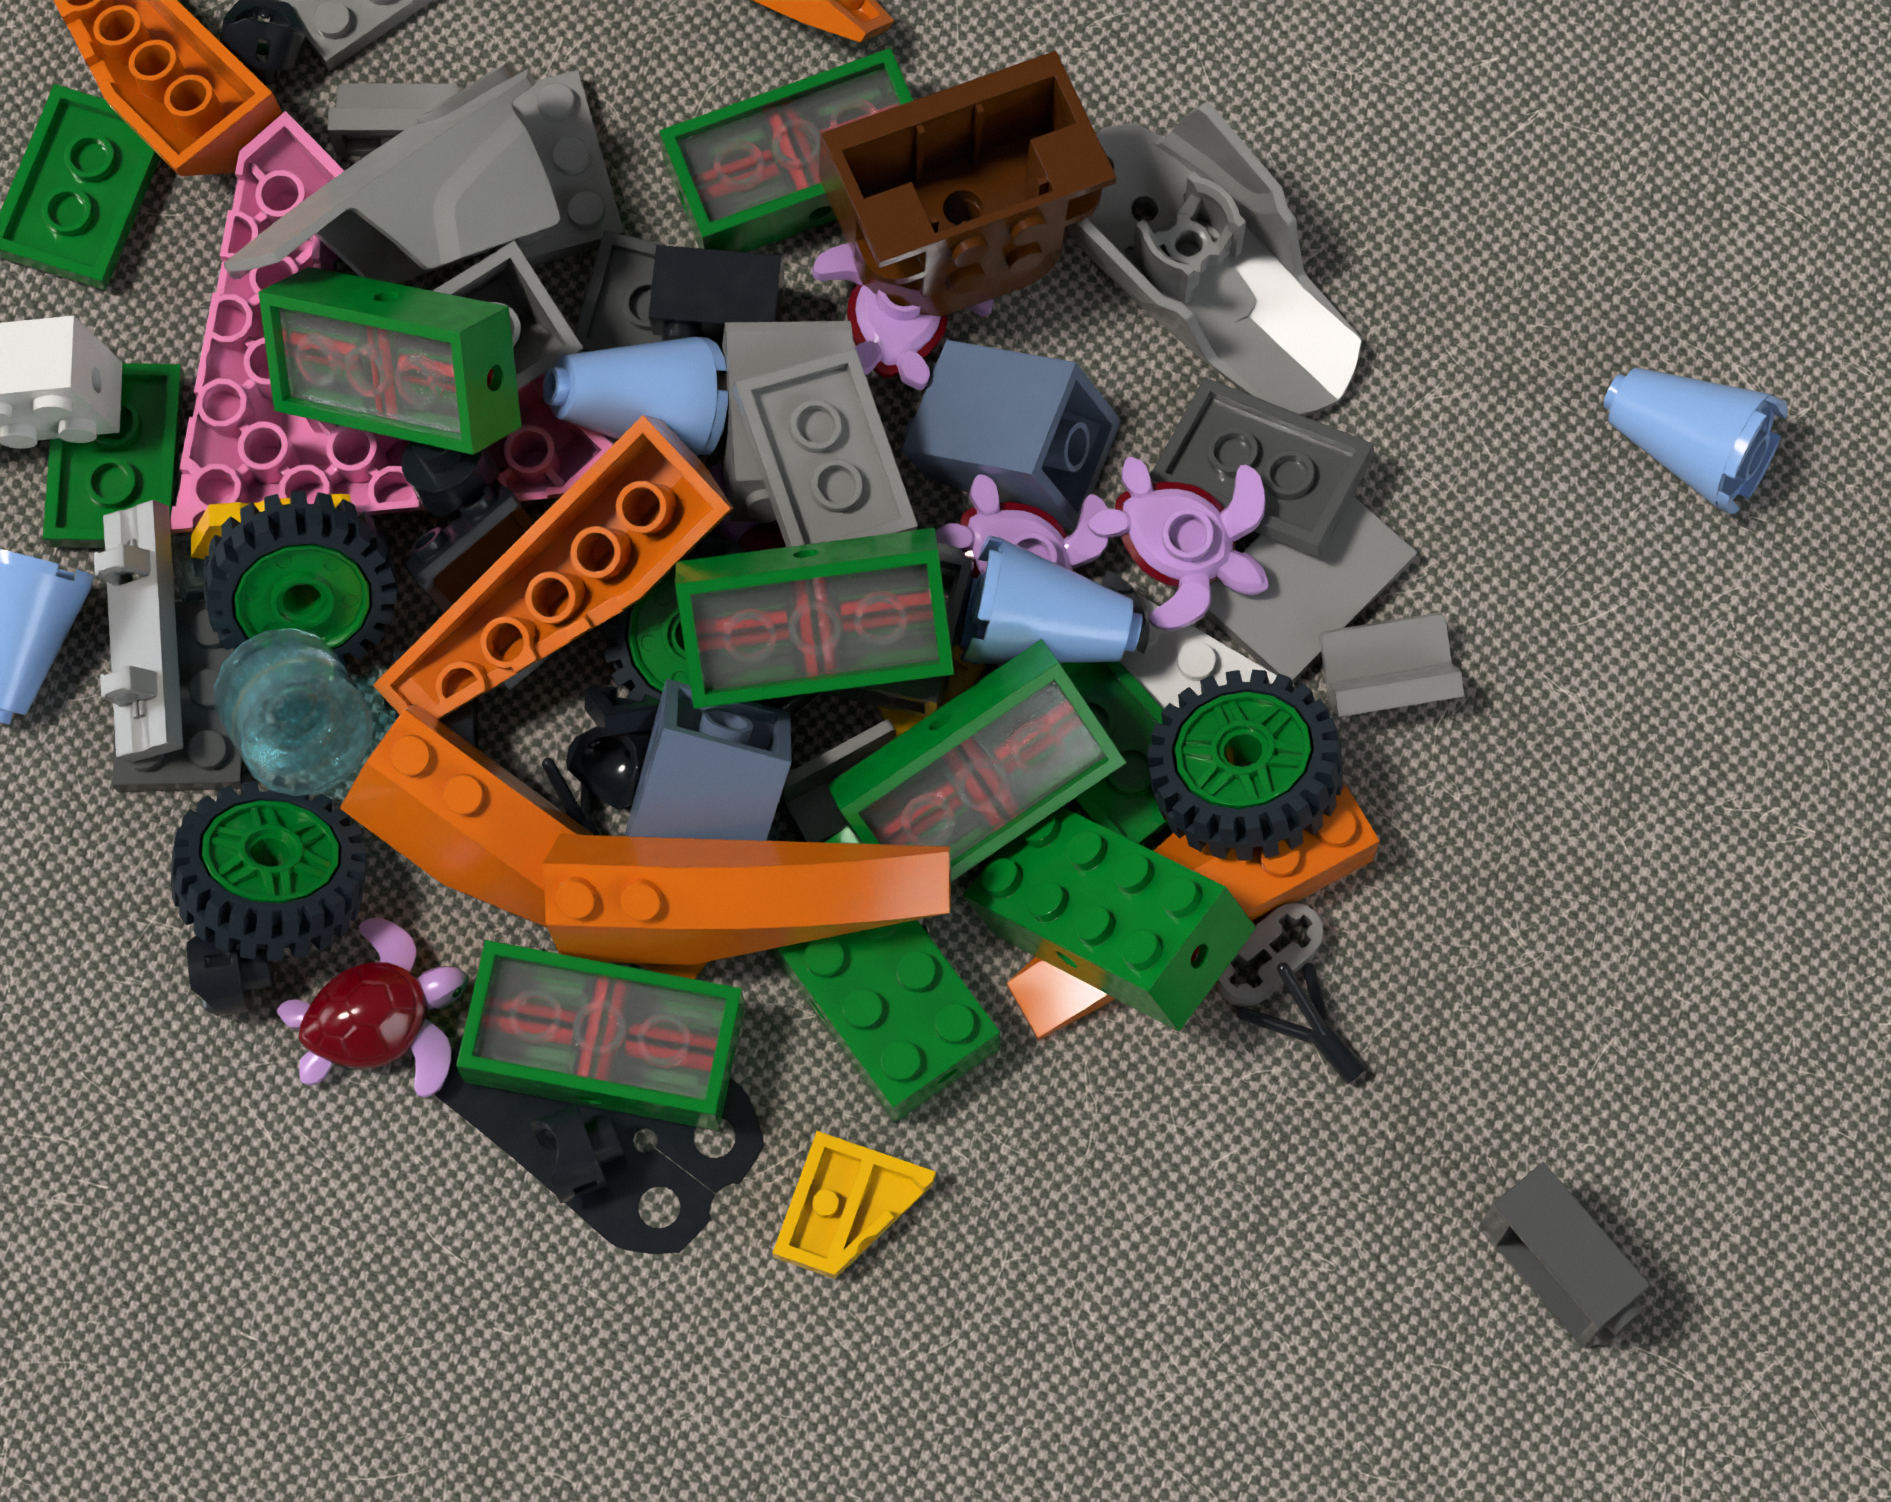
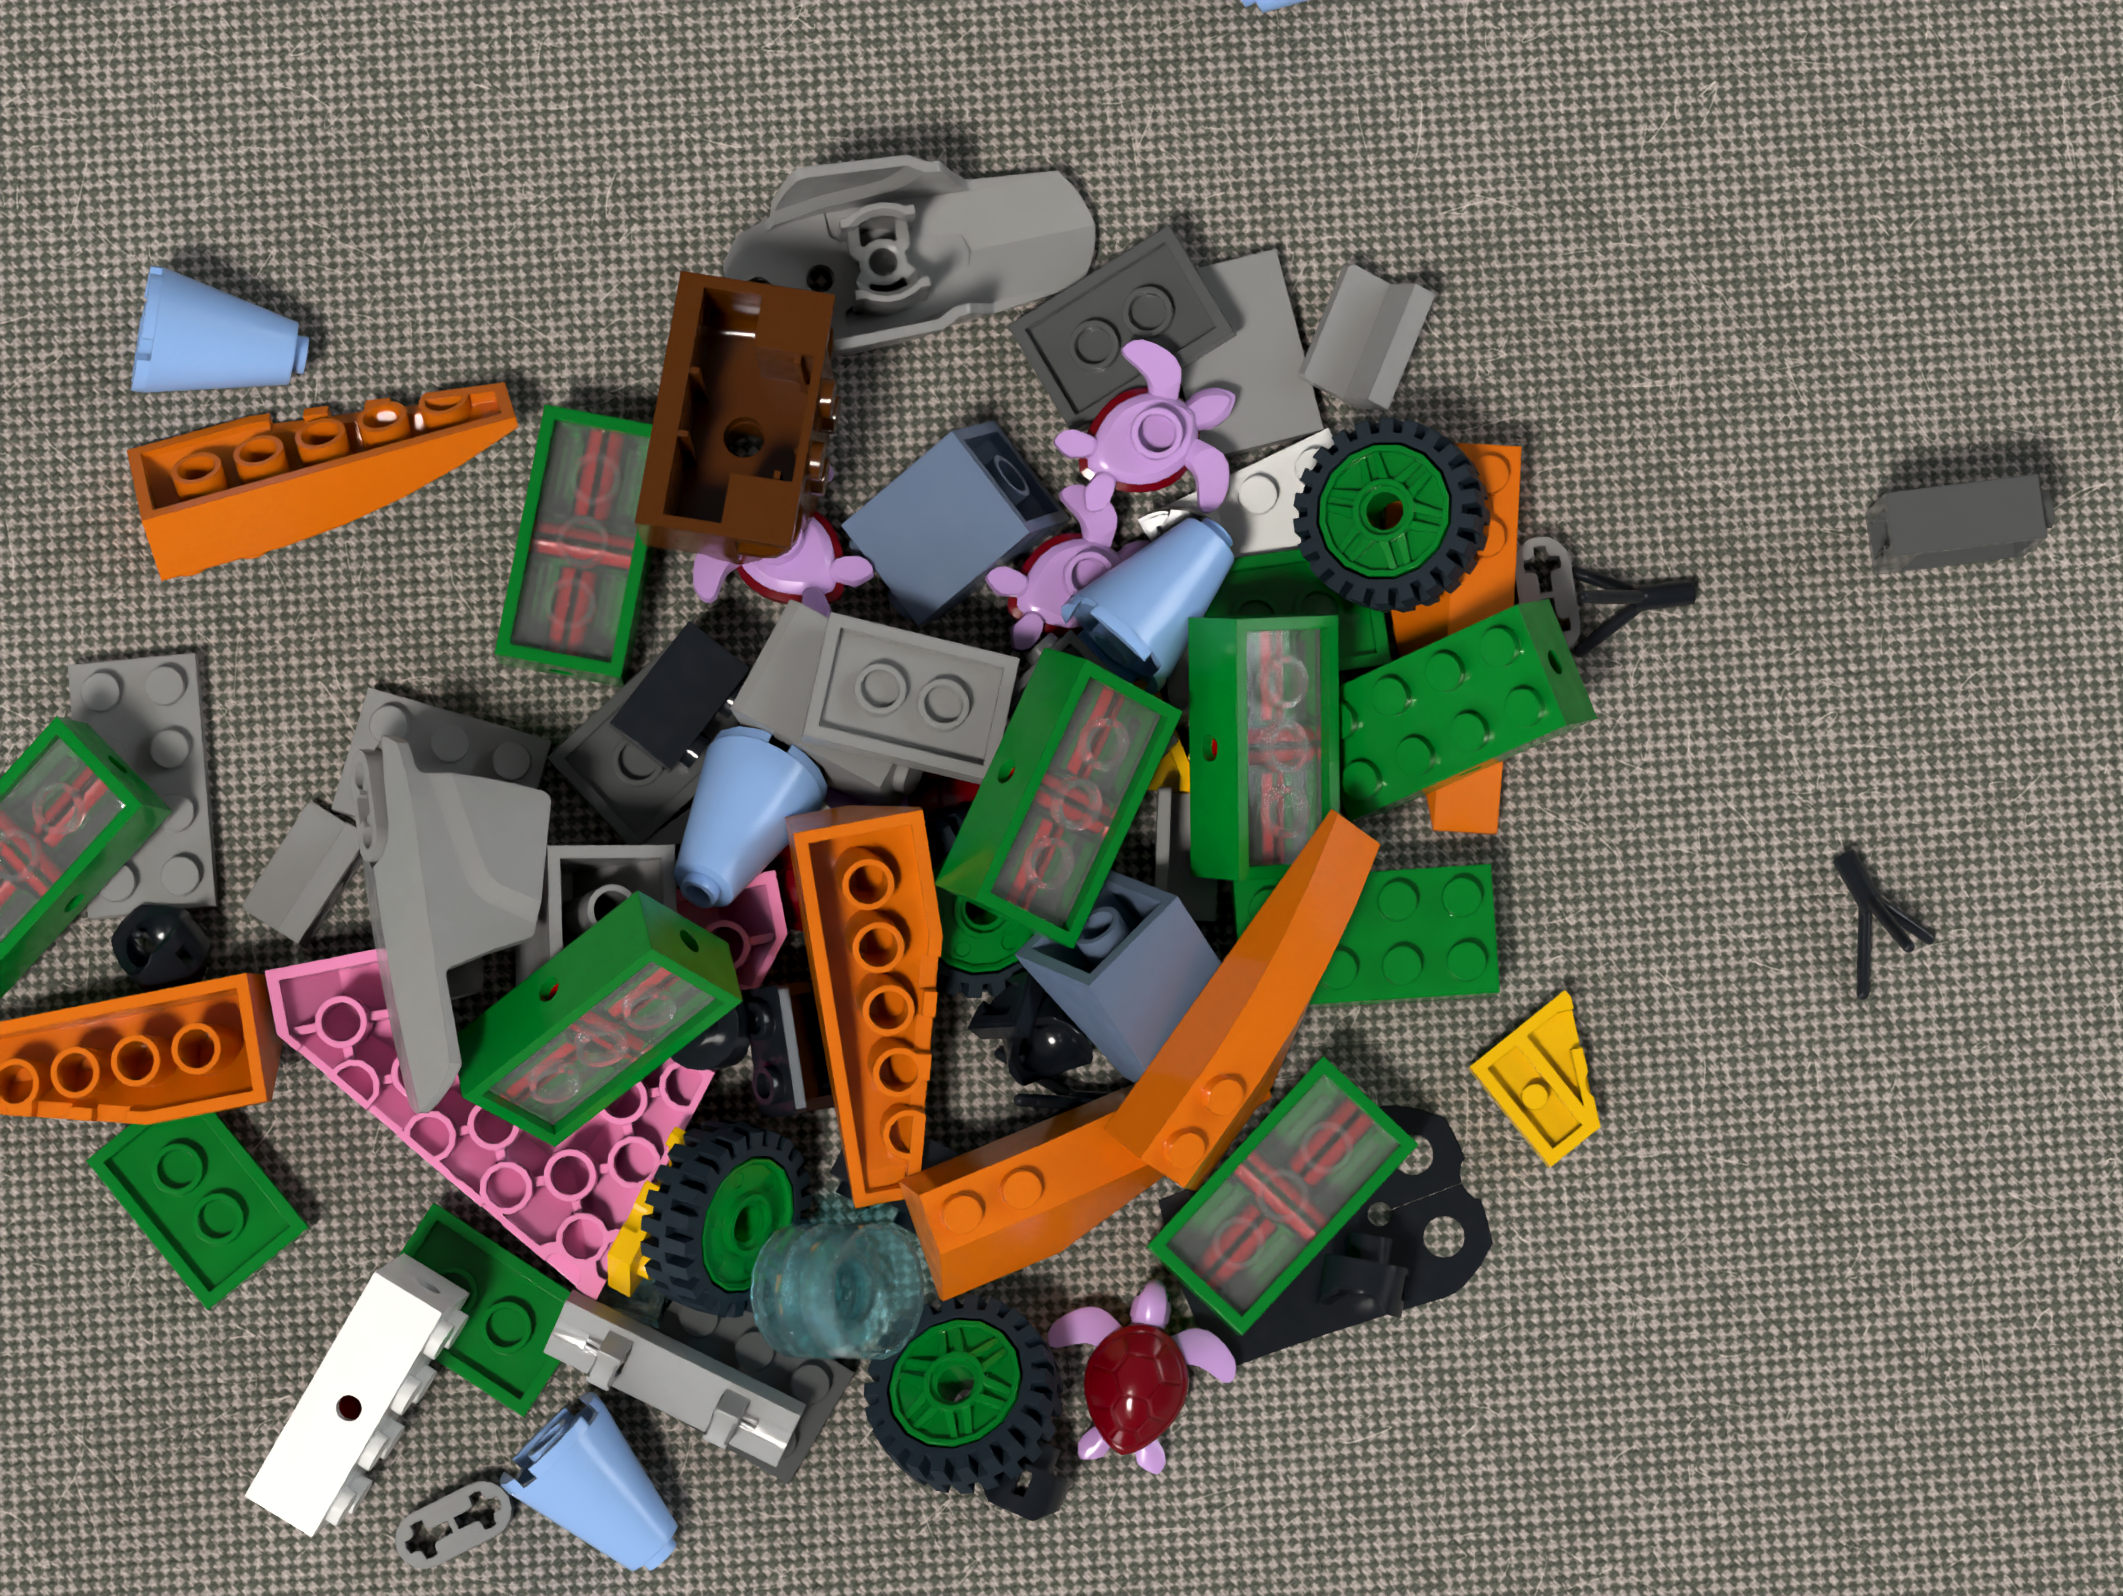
camera: 65 degrees left, 10 degrees up
(1180, 1401) = (1868, 902): none -> black plant

